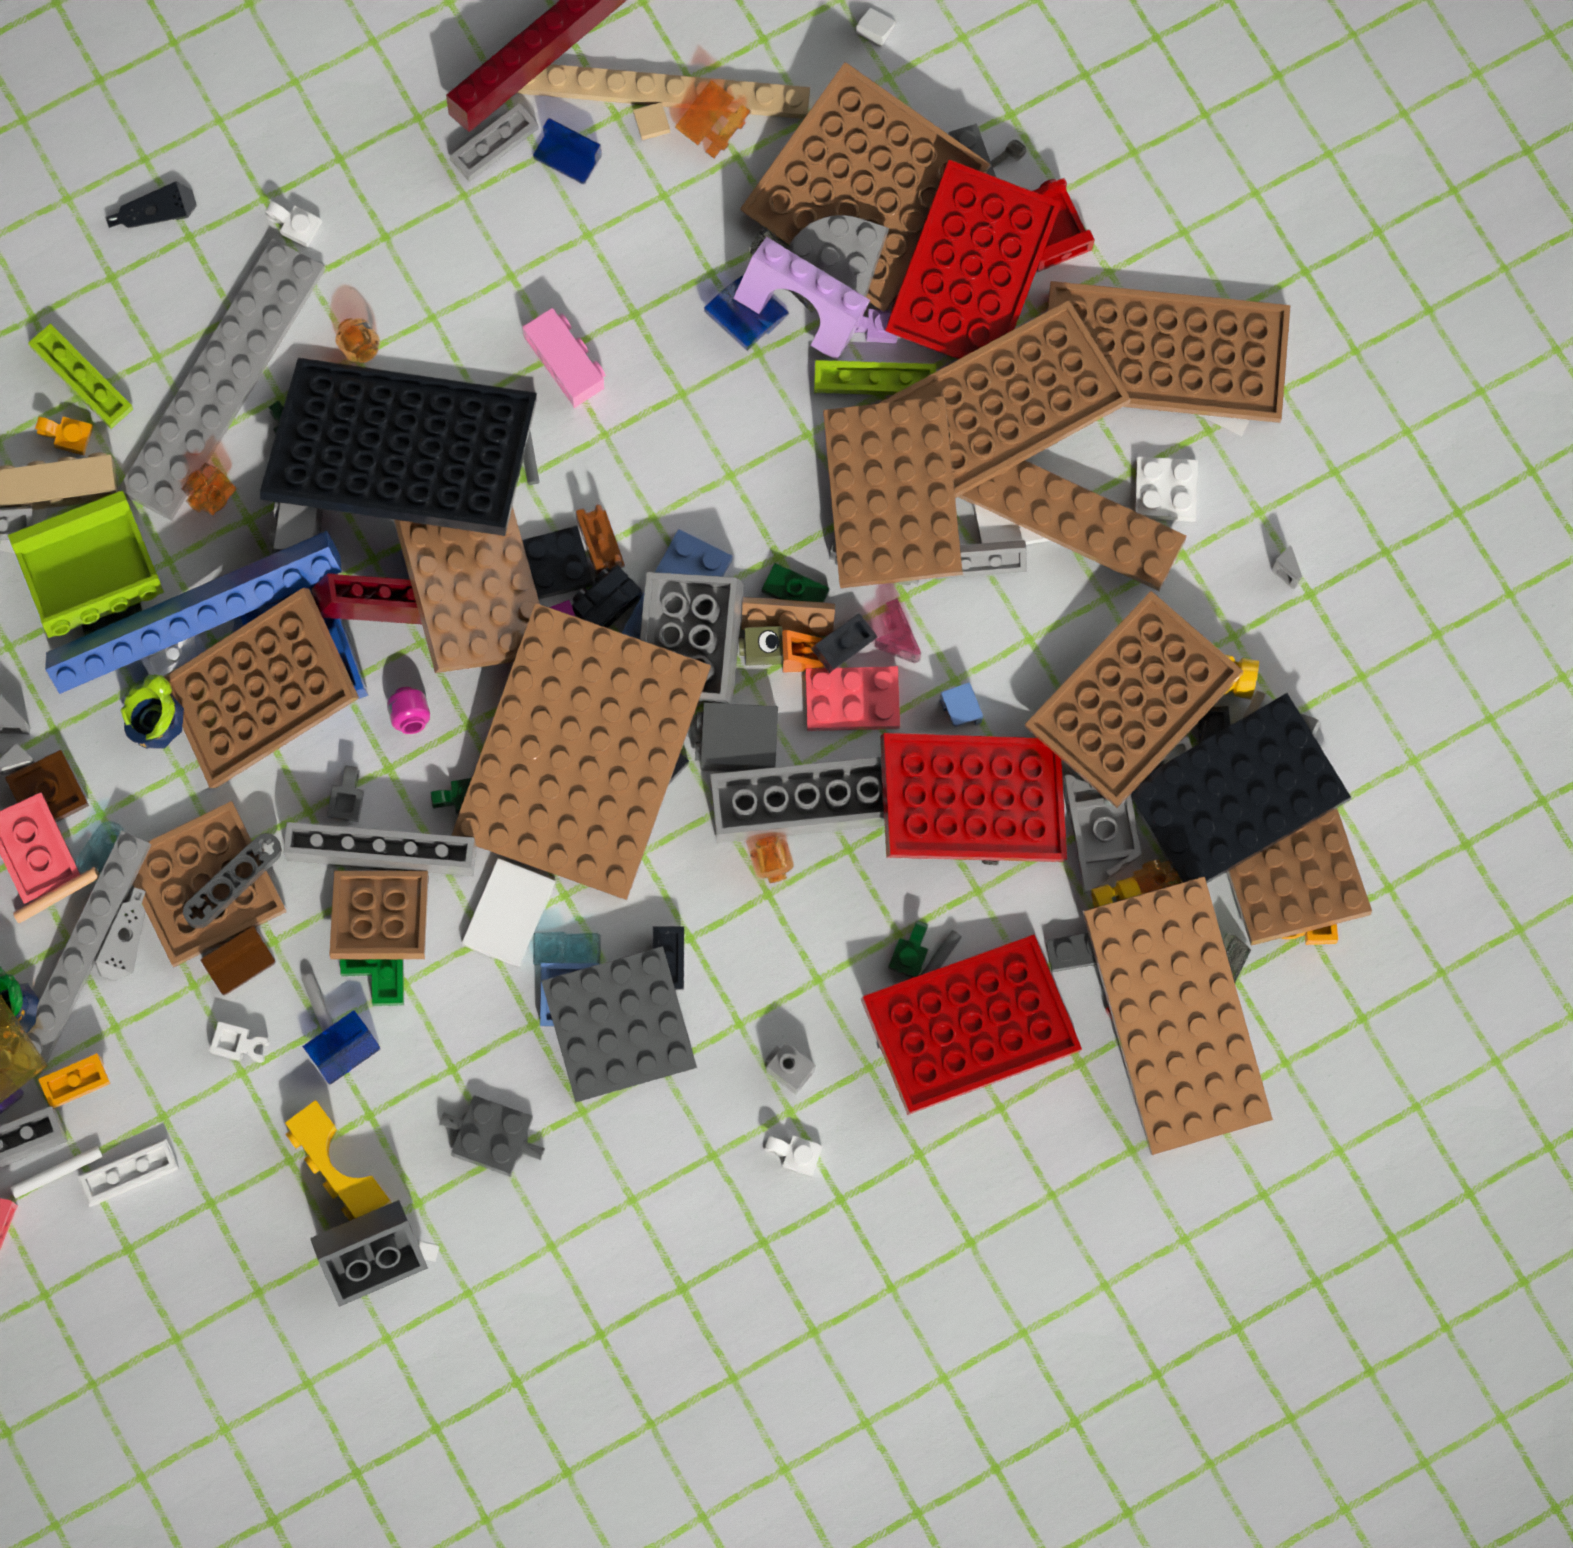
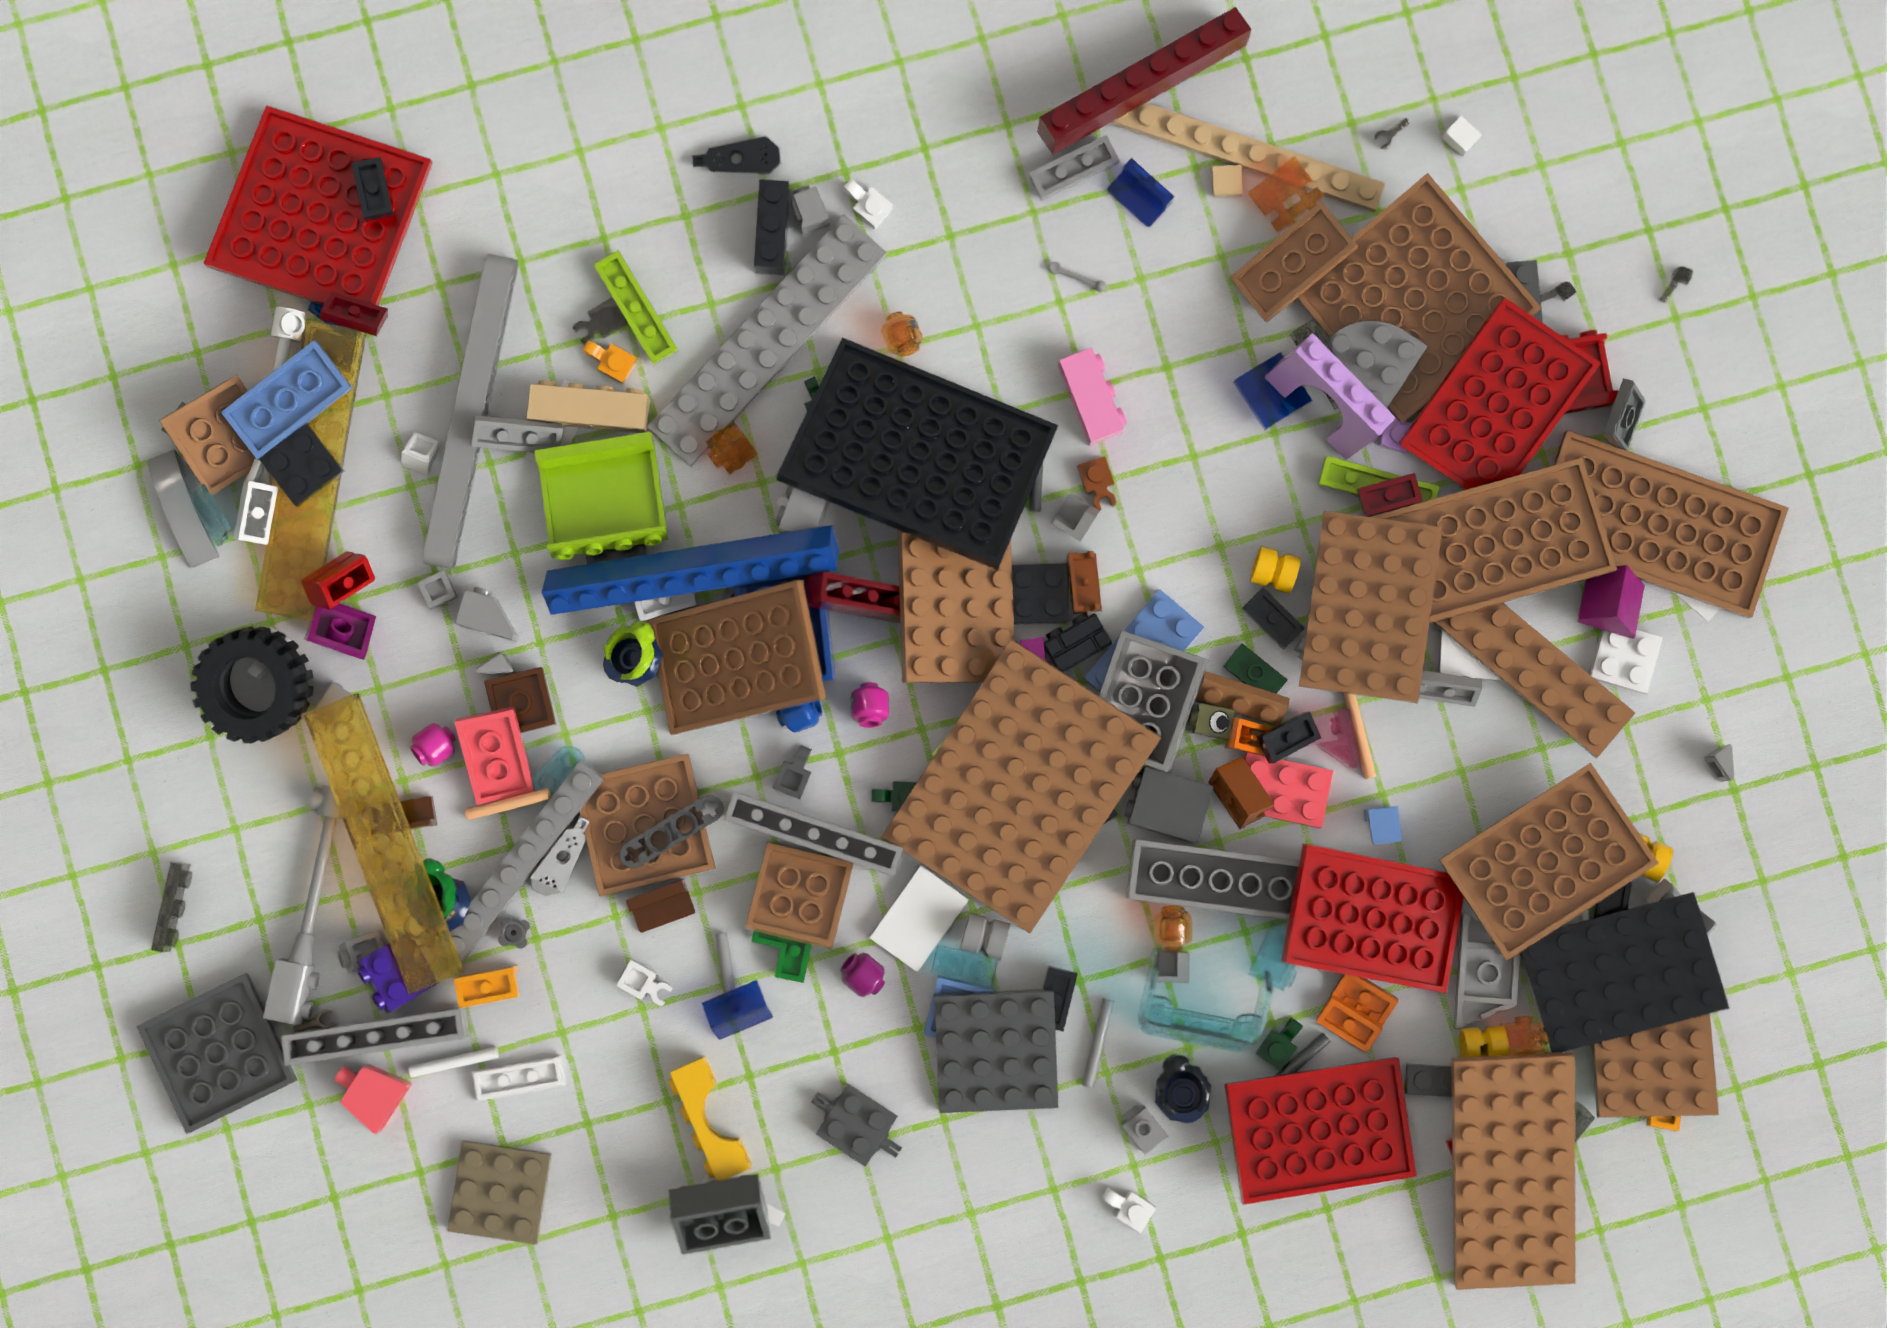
camera: 10 degrees right, 10 degrees up
(50, 396) = (604, 319): none -> clear smoke plate
(84, 1018) = (507, 938): none -> flat silver plate
(133, 1294) = (499, 1192): none -> dark tan plate
(202, 266) = (772, 227): none -> black brick
(236, 241) = (809, 209): none -> light grey window
(337, 733) = (800, 716): none -> blue head
(463, 980) = (863, 974): none -> magenta head
(498, 244) = (1055, 268): none -> light grey hinge
(576, 477) = (1075, 516): none -> light grey panel
(580, 912) = (985, 936): none -> light grey wheel
(589, 437) = (1096, 478): none -> dark orange plate
(723, 994) = (1098, 1043): none -> light grey bar
(735, 180) = (1294, 262): none -> medium nougat plate
(779, 900) = (1173, 966): none -> light grey panel
(784, 955) = (1161, 1019): none -> clear light blue windscreen
(790, 482) = (1278, 570): none -> yellow wheel
(800, 531) = (1273, 618): none -> black plate
(804, 40) = (1392, 132): none -> clear smoke hand
(807, 707) = (1240, 792): none -> dark orange hinge
(820, 1018) = (1182, 1090): none -> piece
(882, 874) = (1270, 957): none -> clear light blue slope
(886, 381) = (1389, 495): none -> dark red plate
(917, 627) = (1360, 736): none -> light nougat bar
(981, 899) = (1357, 1010): none -> orange slope
(1102, 252) = (1624, 415): none -> dark grey plate
(1127, 109) = (1679, 275): none -> clear smoke hand
(1138, 434) = (1612, 602): none -> magenta slope

